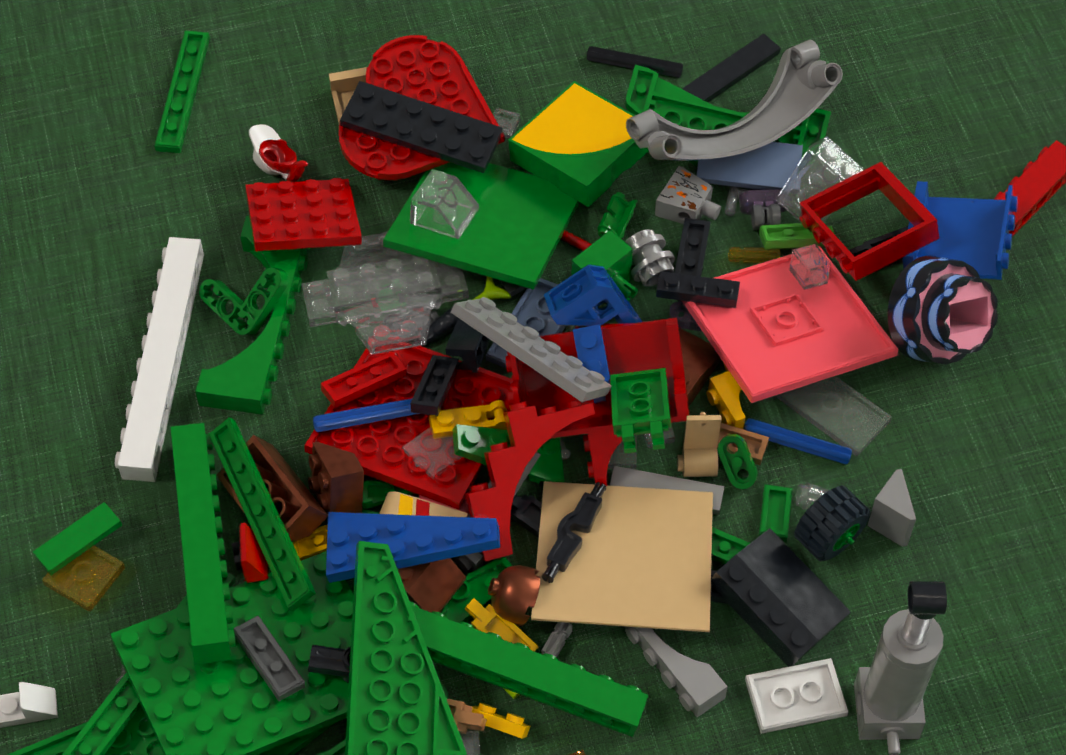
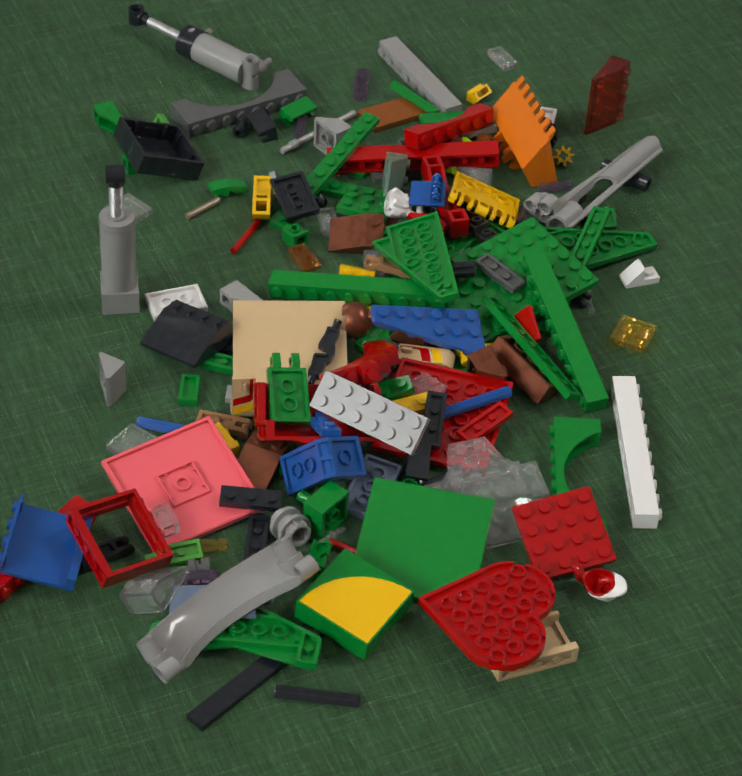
camera: 170 degrees right, 15 degrees down
(77, 538) = (643, 342): green tile -> none
(182, 92) = (700, 648): green tile -> none
(248, 308) = (580, 474): green beam -> none
(421, 126) = (487, 591): black plate -> none
(443, 205) = (454, 528): clear slope -> none
(507, 120) = (421, 631): clear plate -> none
(737, 460) = (216, 405): green plate -> none
(807, 494) = (161, 395): clear cone -> none
(832, 523) = (152, 364): black wheel -> none
(941, 310) = (66, 470): piece -> none

